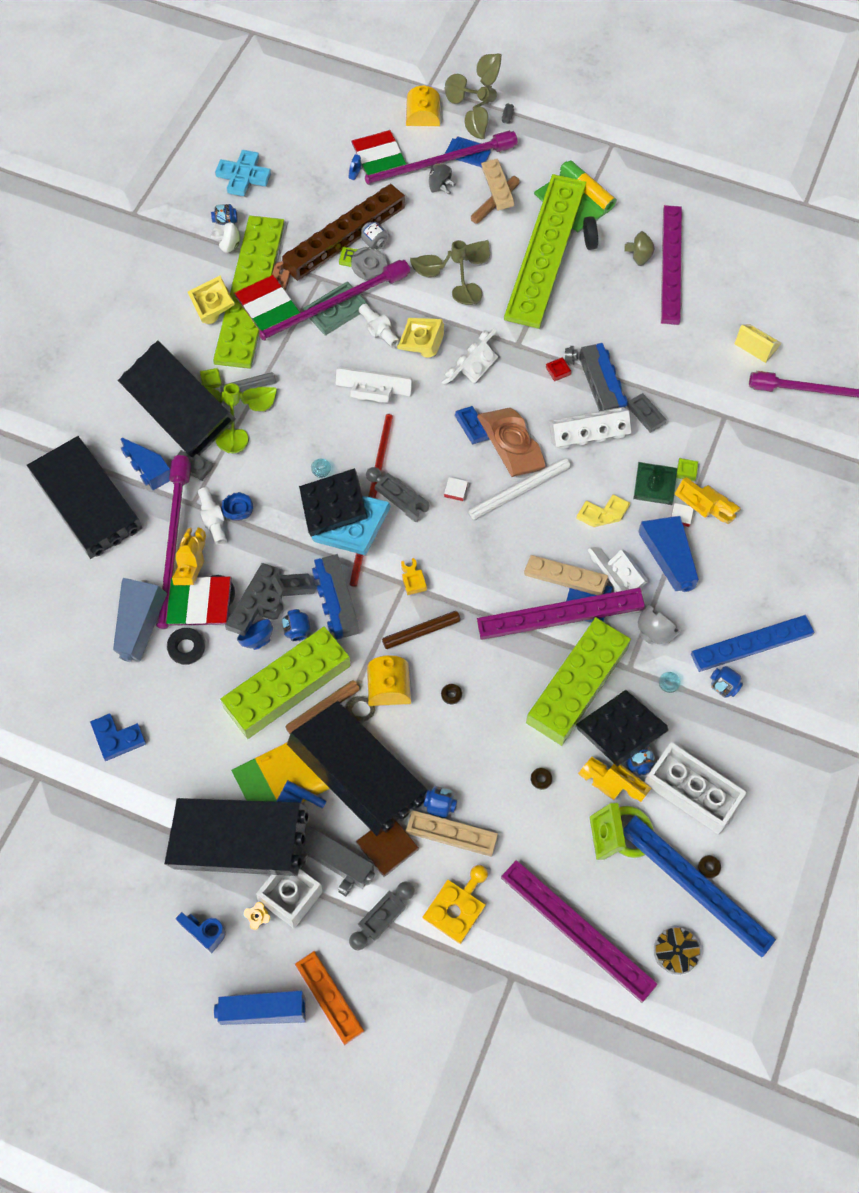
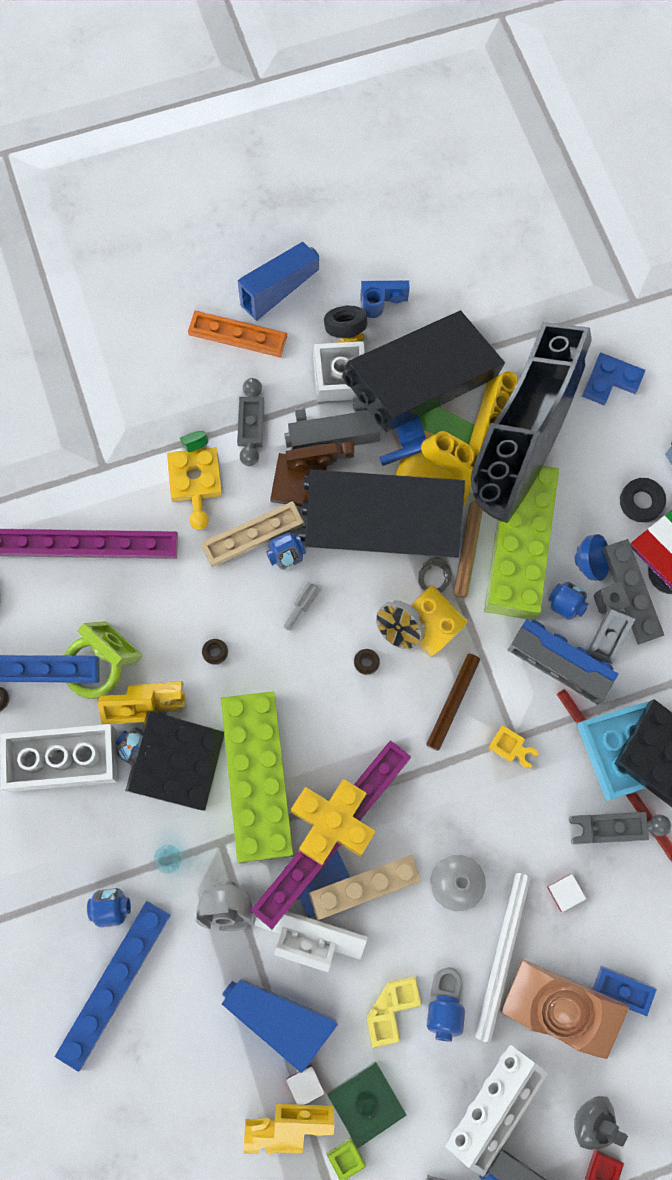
camera: 135 degrees right, 10 degrees up
(205, 740) = (530, 420): none -> black slope
(235, 936) = (336, 328): none -> black tyre
(238, 763) = (457, 455): none -> yellow beam
(359, 841) = (318, 455): none -> reddish brown plate
(413, 691) = (400, 624): none -> tile
(433, 935) = (194, 440): none -> green tile
(458, 762) = (302, 603): none -> light grey axle
(511, 538) = (458, 883): none -> light grey cylinder
(544, 385) = (597, 1126): none -> dark grey piece
(556, 615) = (332, 821): none -> yellow plate
(562, 500) = (447, 983): none -> light grey tile
(578, 484) = (446, 1018): none -> blue head

